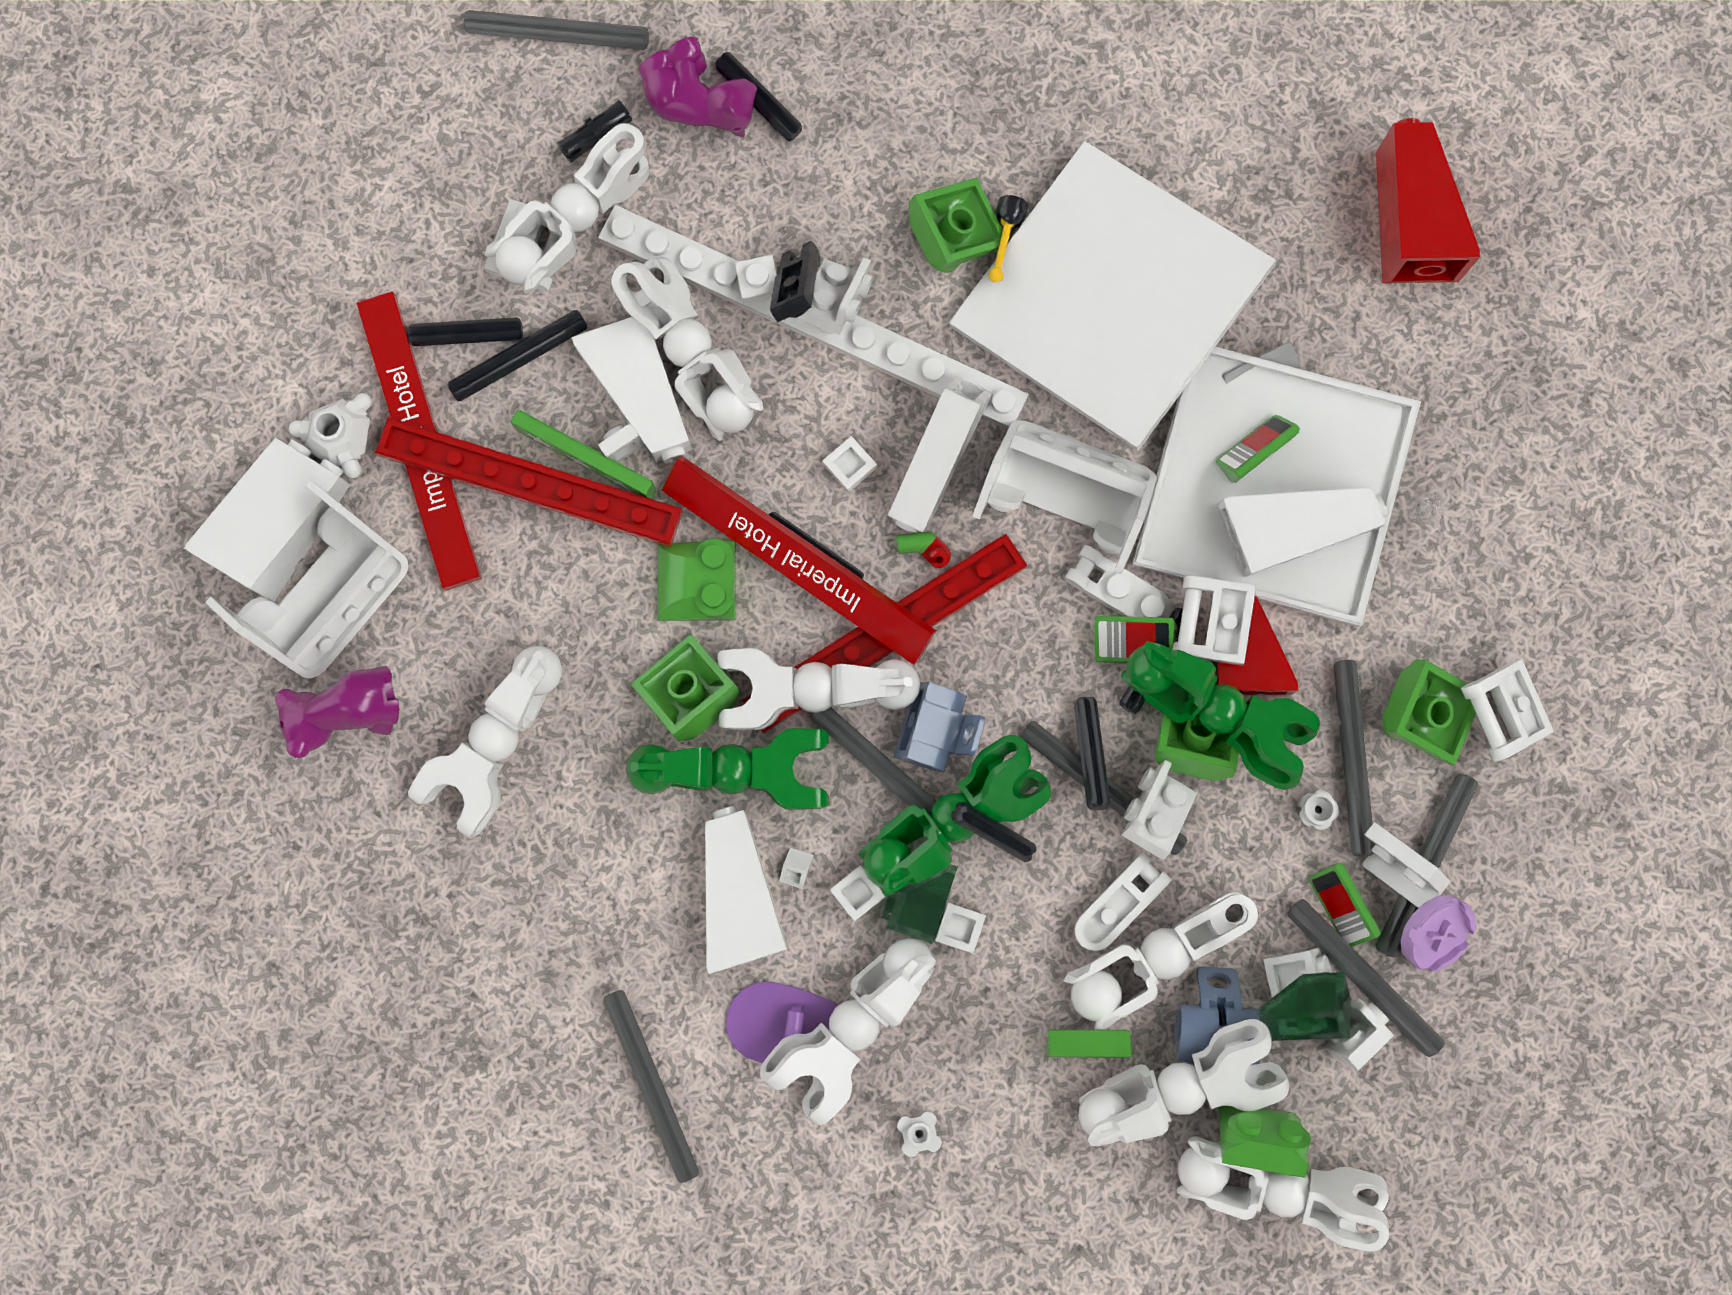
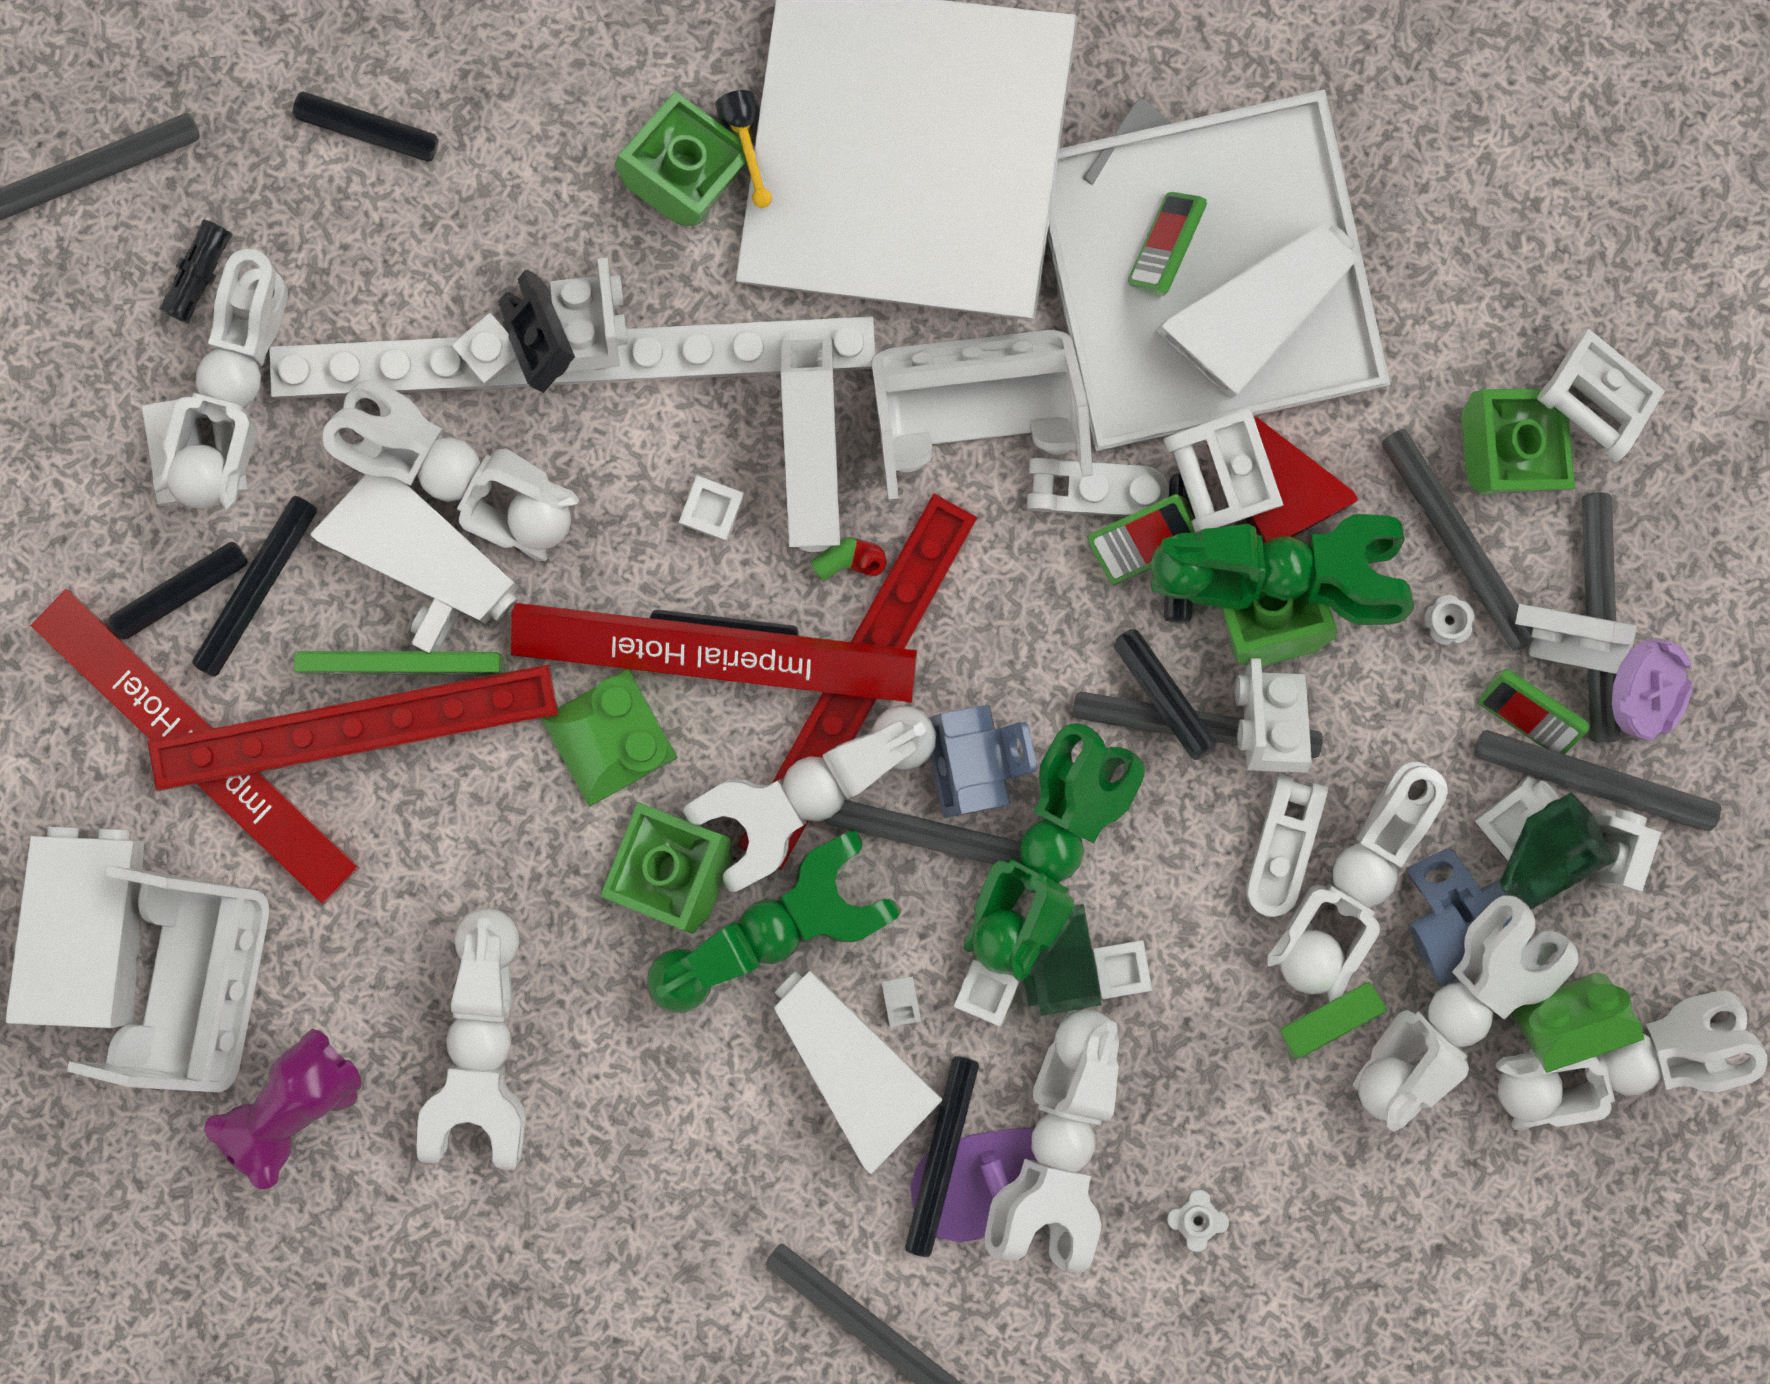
camera: 35 degrees left, 5 degrees up
(337, 432) = (95, 789): white rock -> none
(678, 96) = (276, 179): magenta animal -> none
(765, 990) = (941, 1156): none -> black axle
(993, 831) = (1103, 844): black axle -> none

